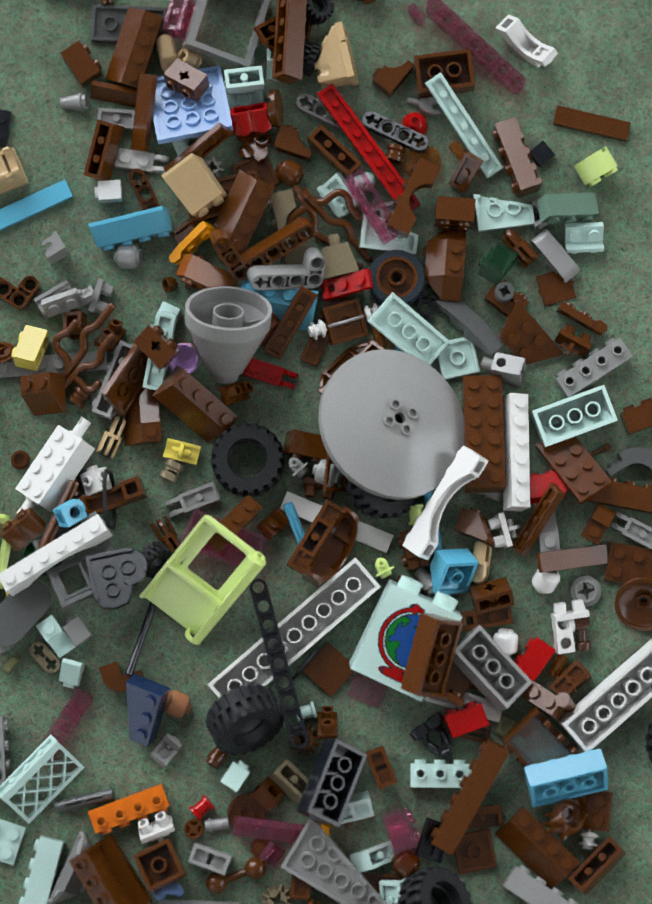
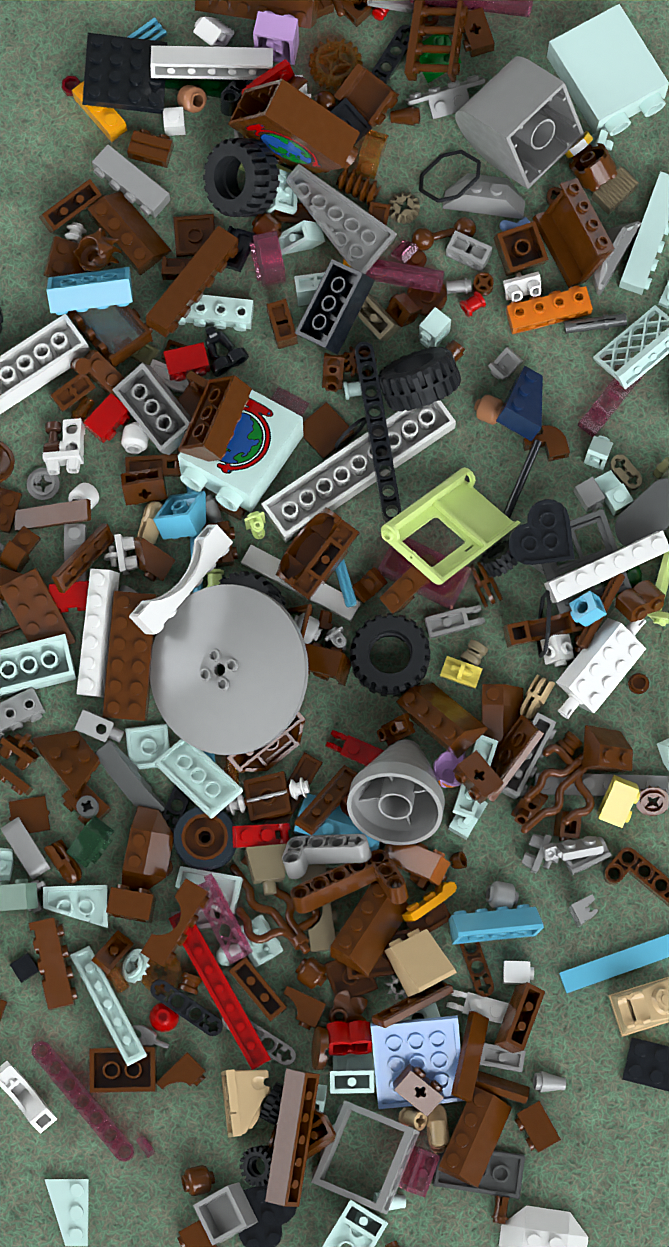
camera: 170 degrees left, 5 degrees down
(449, 161) = (129, 970): none -> light aqua gear

